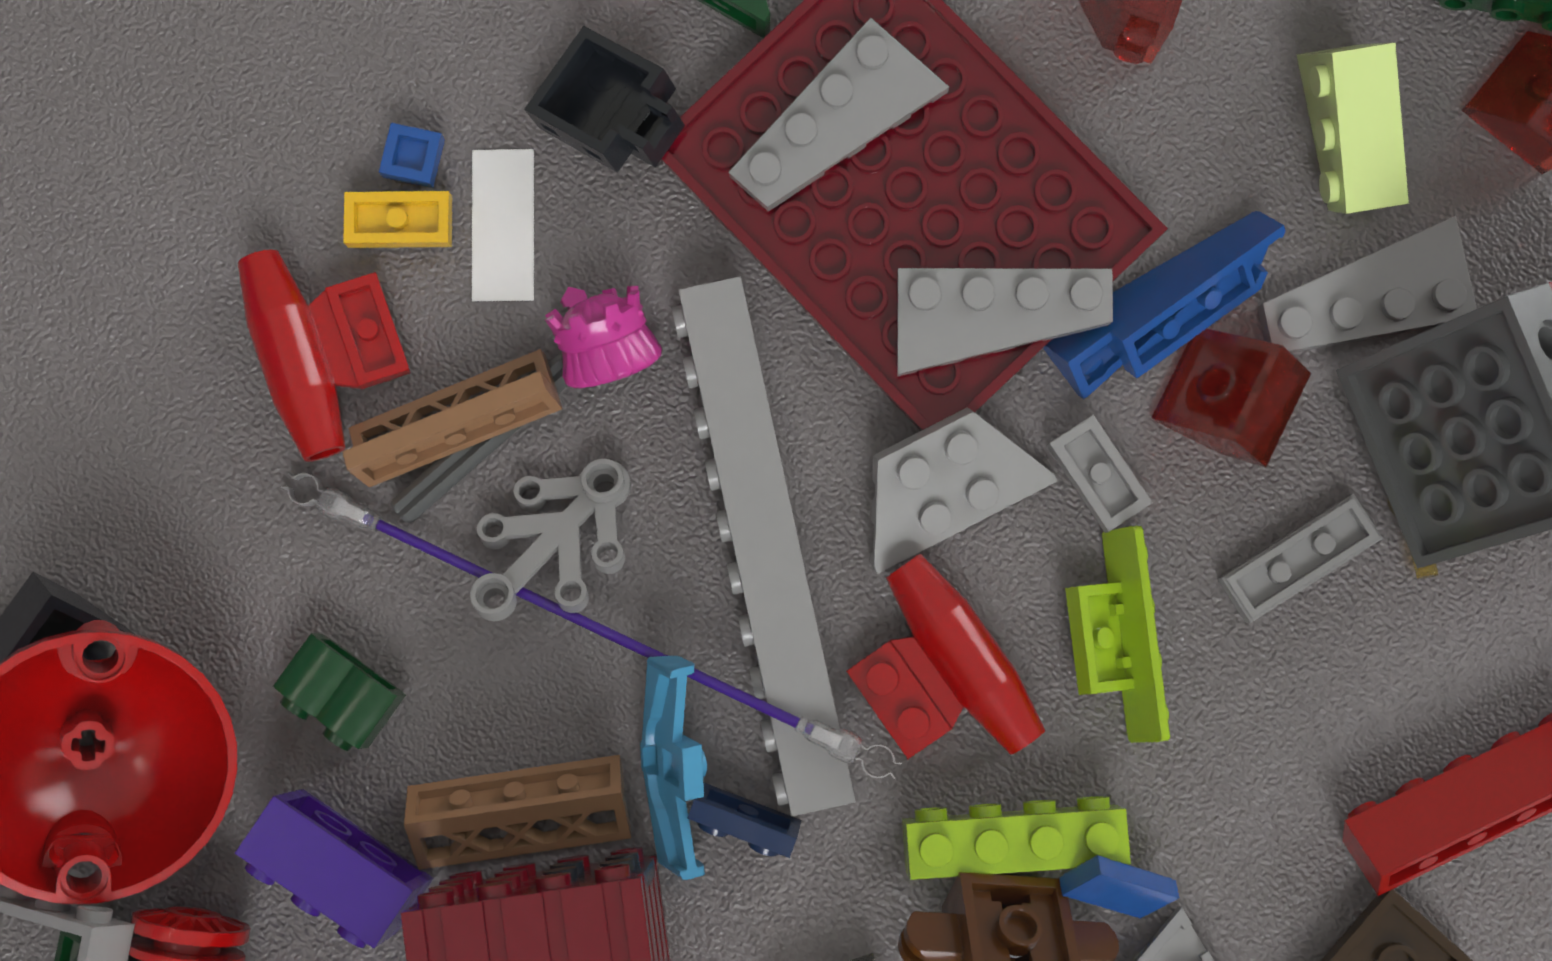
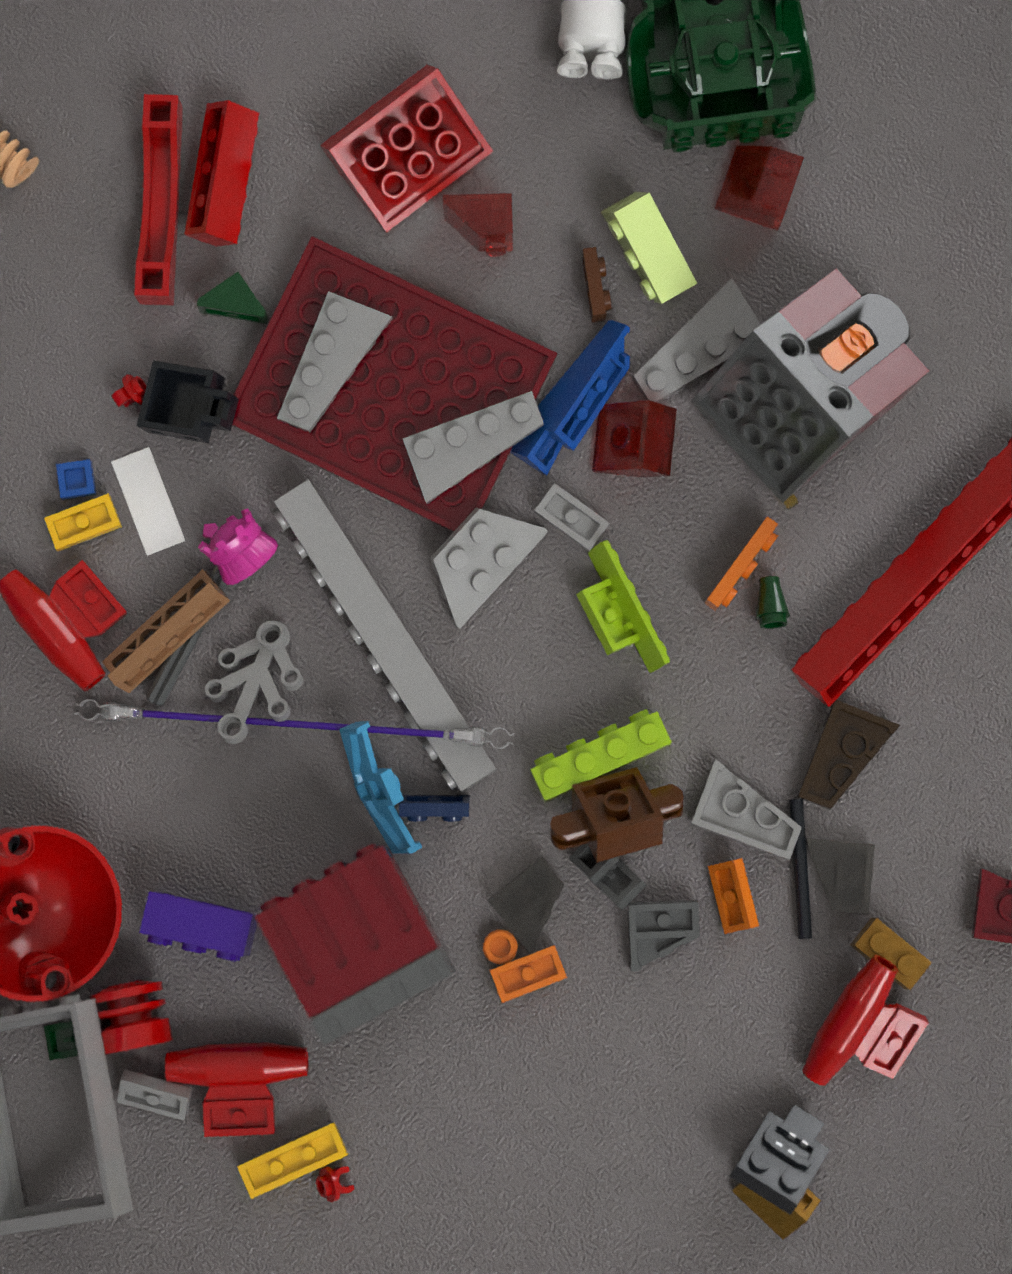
camera: 20 degrees left, 0 degrees up
(338, 692) = (159, 823): dark green brick -> none
(514, 804) = (292, 849): medium nougat fence -> none
(536, 60) = (132, 392): none -> red plate
(946, 666) = (521, 669): red plate -> none
(1118, 887) = (671, 759): blue tile -> none
(1259, 132) = (598, 298): none -> reddish brown plate
(1300, 558) = (712, 523): light grey tile -> none
(1325, 636) = (743, 565): none -> orange plate
(1345, 712) = (771, 605): none -> dark green cone

